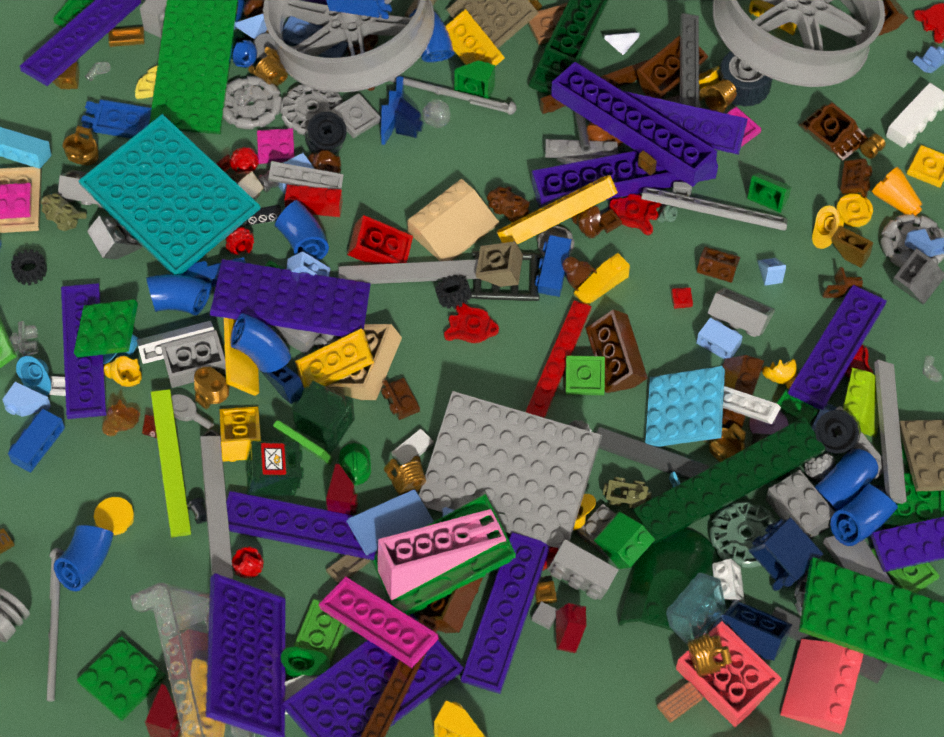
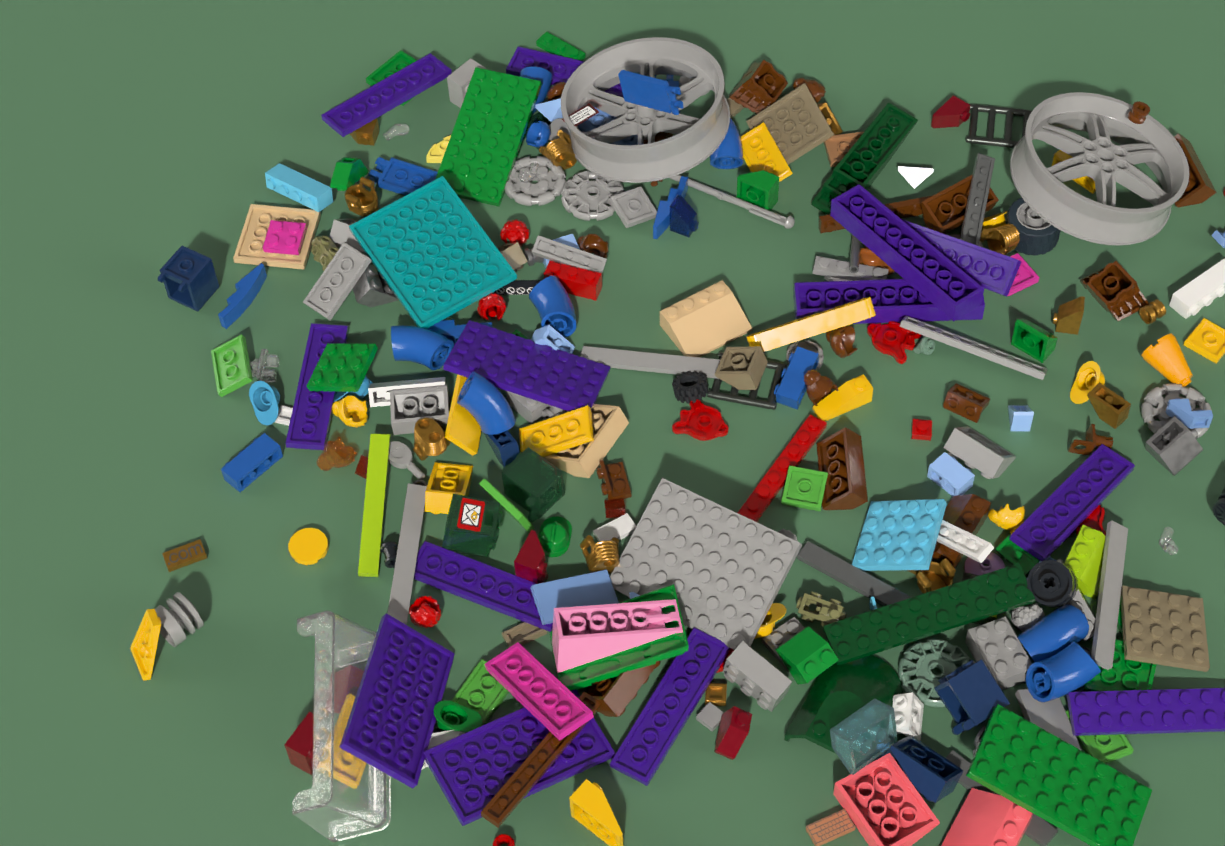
camera: 15 degrees right, 5 degrees down
(24, 401) = (250, 423): light blue slope -> none
(28, 258) = (286, 293): black tyre -> none
(54, 618) = (244, 573): light grey bar -> none
(61, 123) = (347, 173): none -> green slope
(78, 239) = (337, 281): none -> light grey tile
(83, 556) = (267, 578): blue brick -> none
(121, 678) = (276, 702): green plate -> none
(126, 36) = (431, 104): pearl gold tile -> none
(224, 163) = (494, 233): clear red slope -> none
(275, 145) = (549, 223): dark pink plate -> none
(289, 30) = (582, 114): none -> sticker
(325, 132) = (599, 217): black wheel -> none
(379, 243) = (628, 329): red slope -> none
(407, 425) = (614, 508): none -> clear red slope
(436, 113) = (712, 216): clear piece -> none
(508, 203) = (764, 311): reddish brown brick -> none
(610, 221) = (864, 344): reddish brown tile -> none
(647, 163) = (911, 291): pearl gold tile -> none
(682, 188) = (944, 323): light grey tile -> none
(702, 653) = (860, 782): pearl gold piece -> none
(798, 163) = (1069, 316): none -> pearl gold slope
(855, 210) = (1120, 371): yellow tile -> none
(856, 177) = (1128, 339): reddish brown bracket -> none

